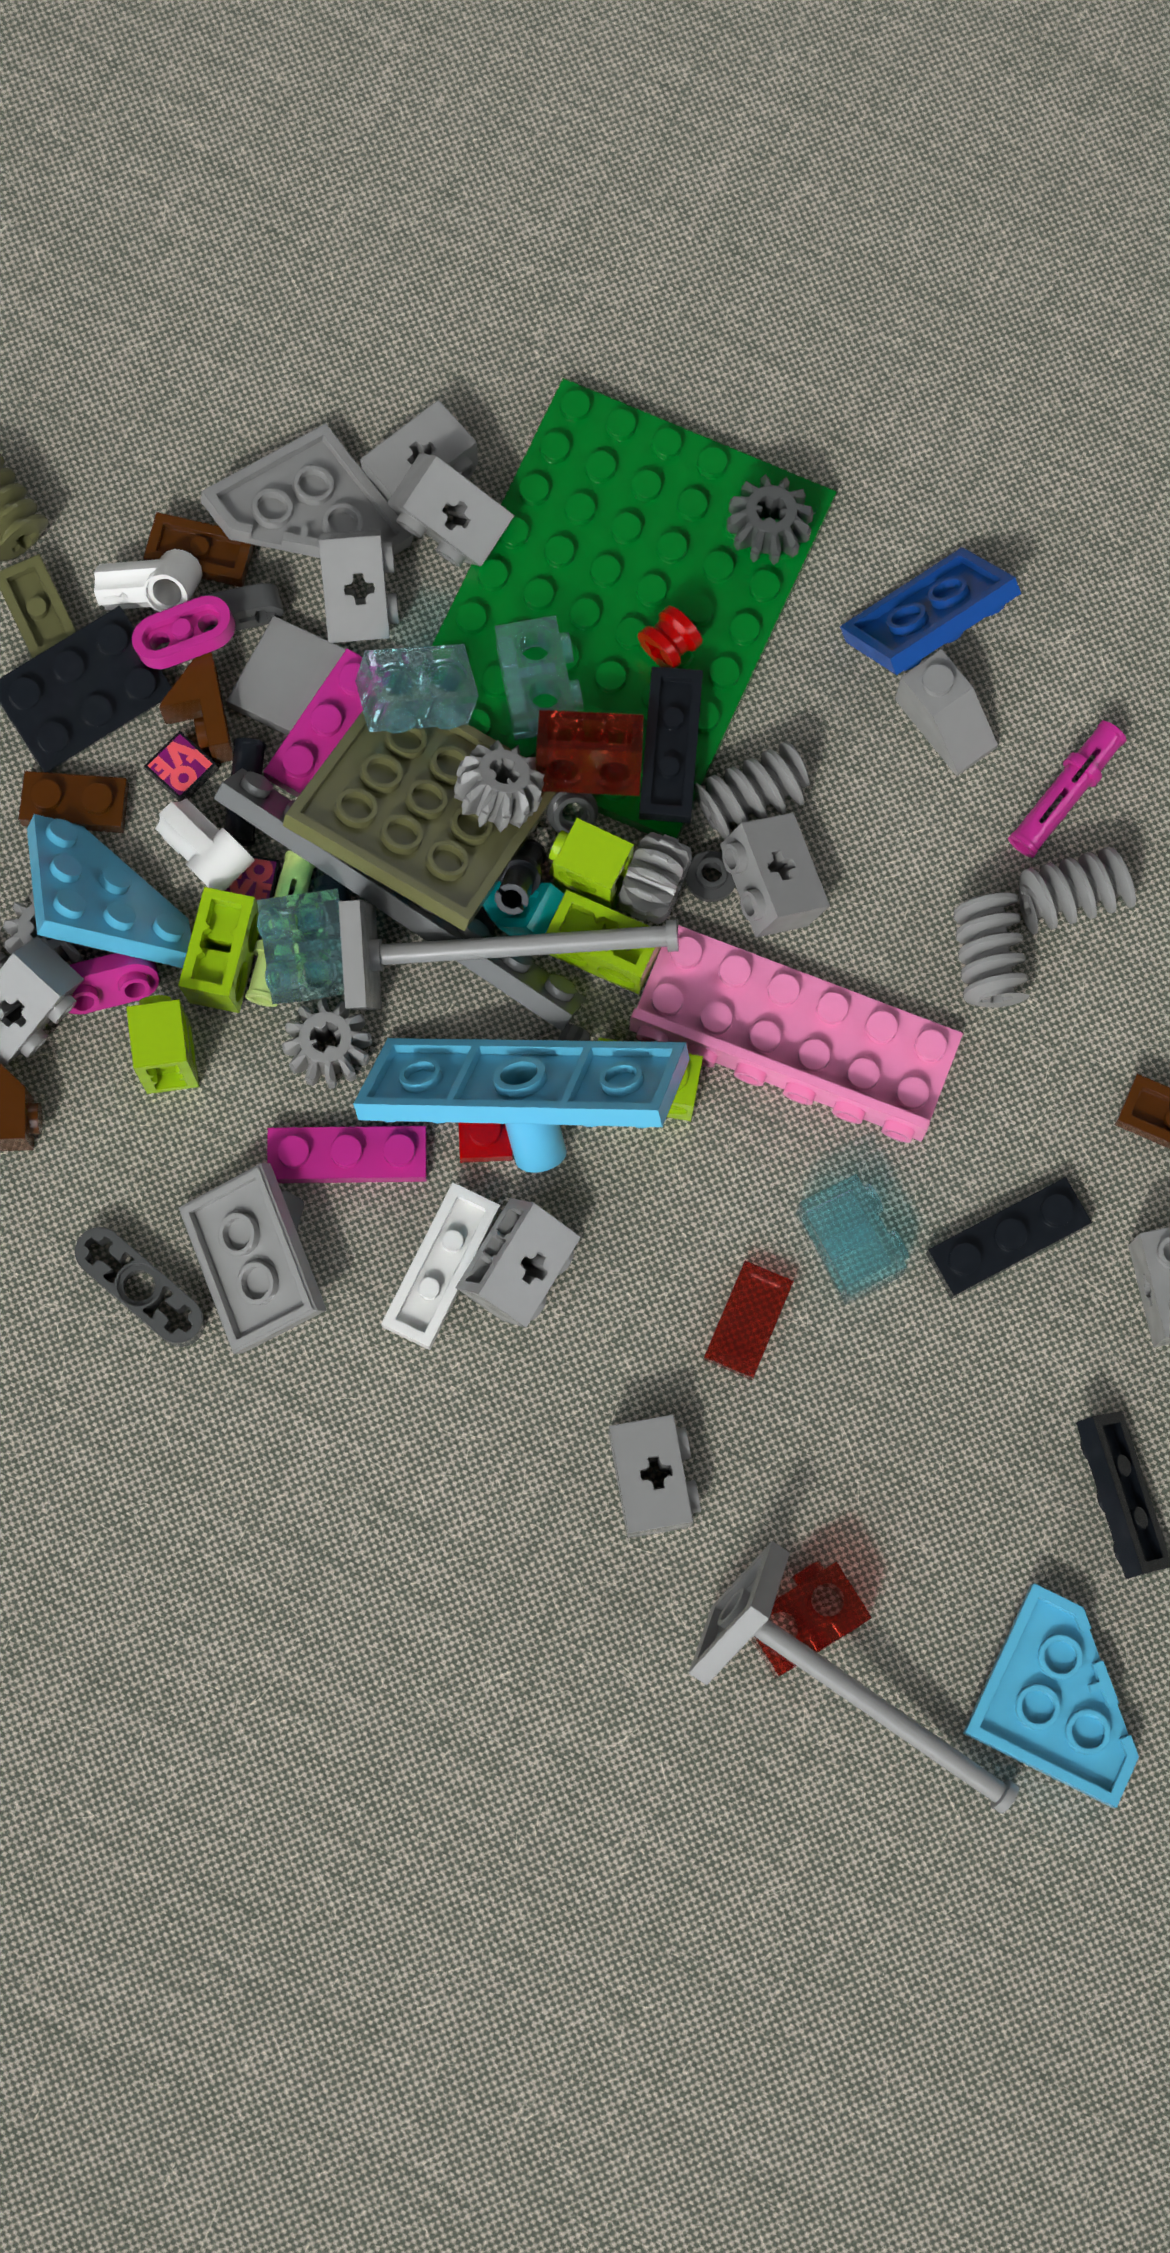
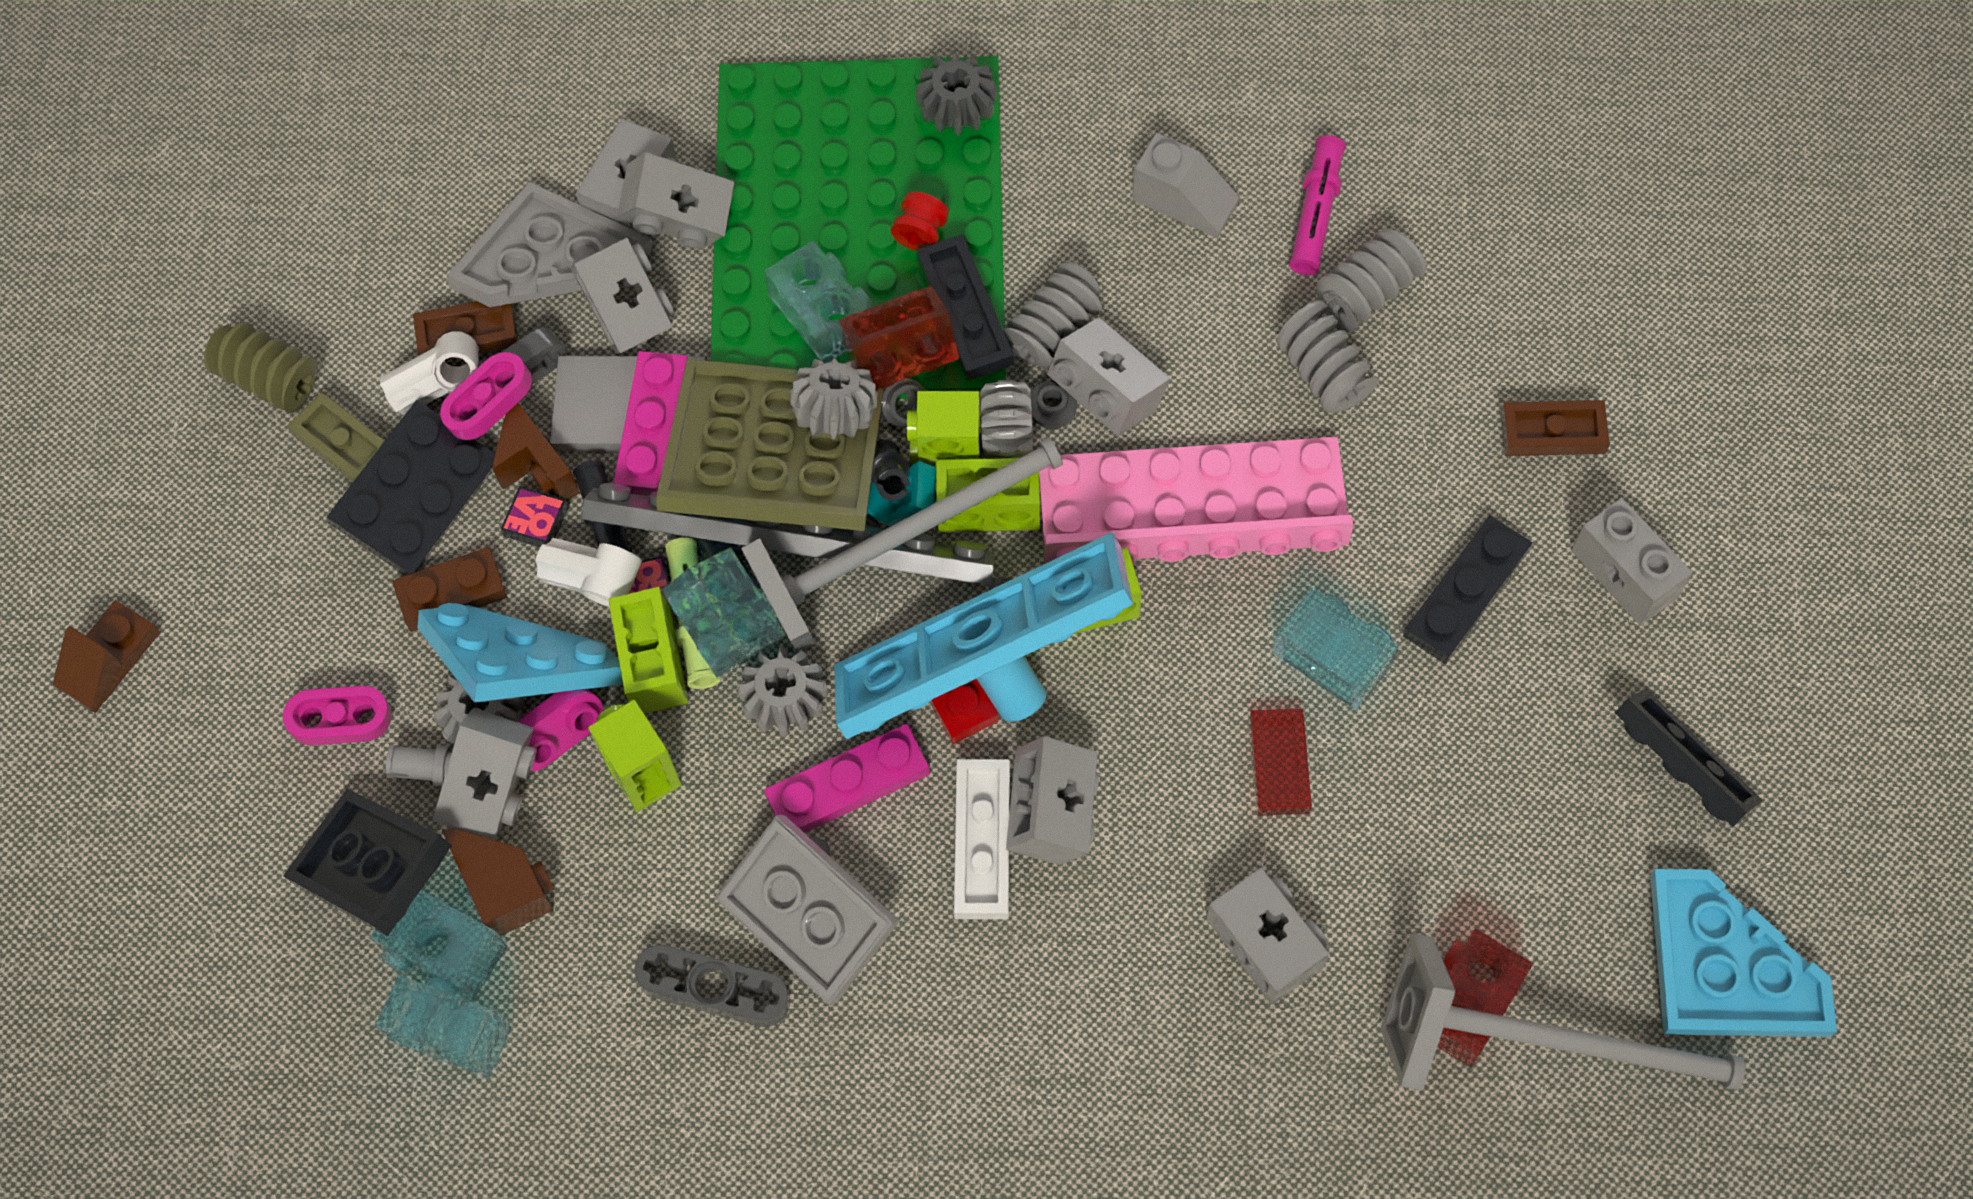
camera: 20 degrees left, 10 degrees down
(427, 688) = (719, 351): clear light blue brick -> none
(930, 610) = (1129, 111): blue plate -> none

